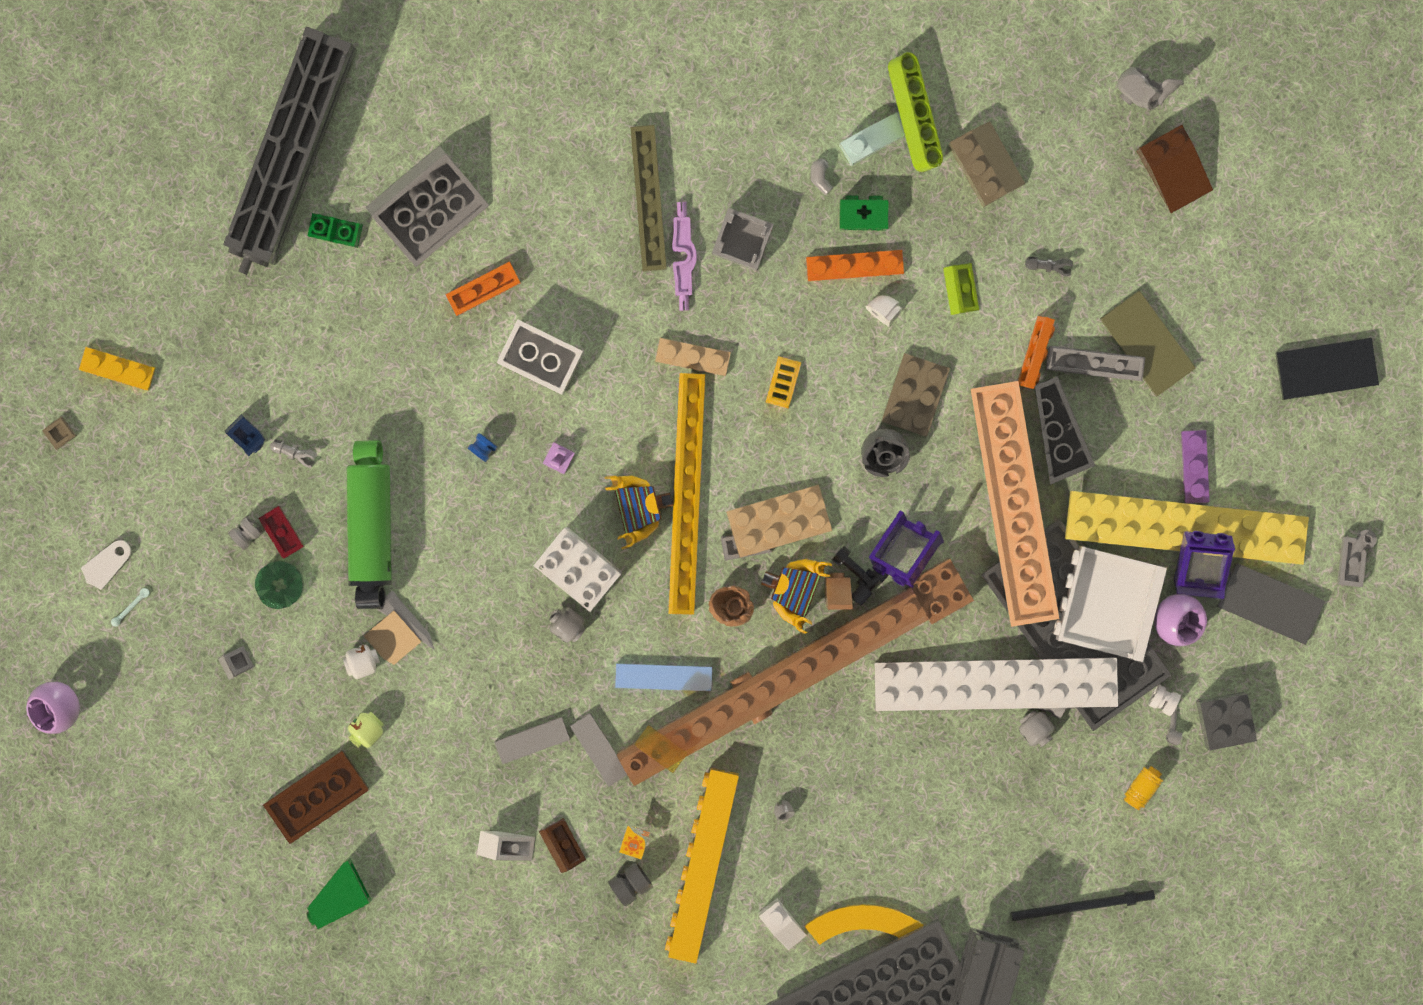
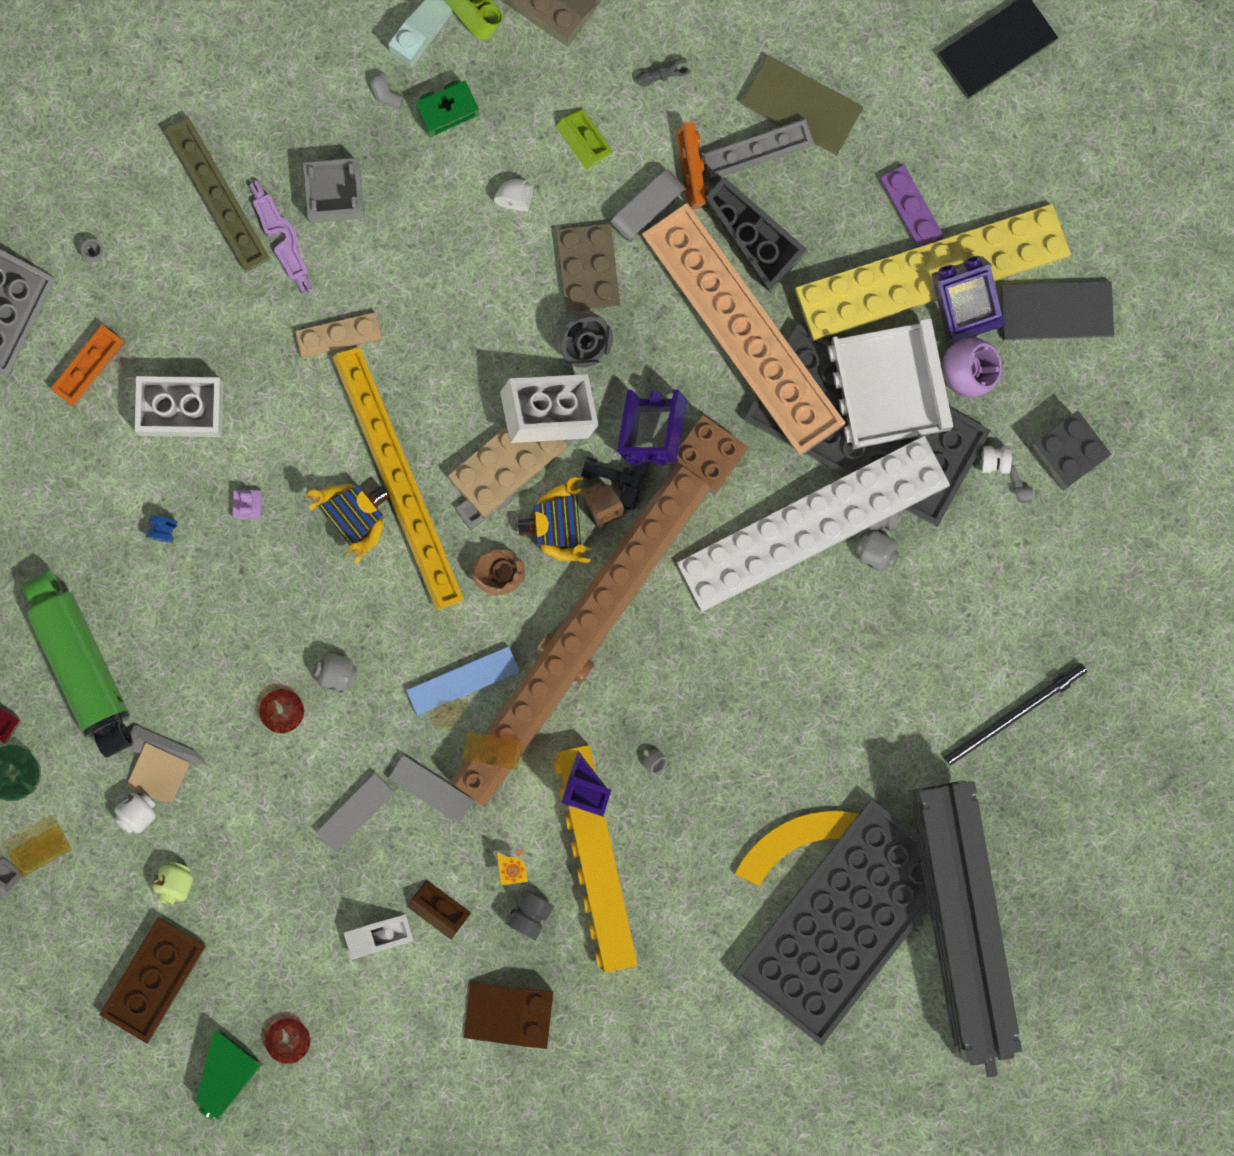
camera: 25 degrees left, 5 degrees down
(274, 656) = (40, 851): none -> clear yellow plate
(407, 900) = (283, 1053): none -> clear red gear
(520, 641) = (268, 708): none -> clear red gear
(533, 197) = (96, 247): none -> light grey hinge
(578, 568) = (319, 605): white container -> none
(579, 953) = (508, 1015): none -> reddish brown slope
(719, 809) = (585, 789): none -> dark purple slope
(777, 401) = (451, 339): yellow slope -> none
(782, 924) = (710, 882): white slope -> none
(831, 497) = (549, 408): none -> white brick
(855, 265) = (463, 165): orange plate -> none
(986, 368) = (647, 204): none -> light grey beam
(1143, 787) = (1018, 560): yellow head -> none
(1354, 558) = (1119, 224): light grey hinge -> none

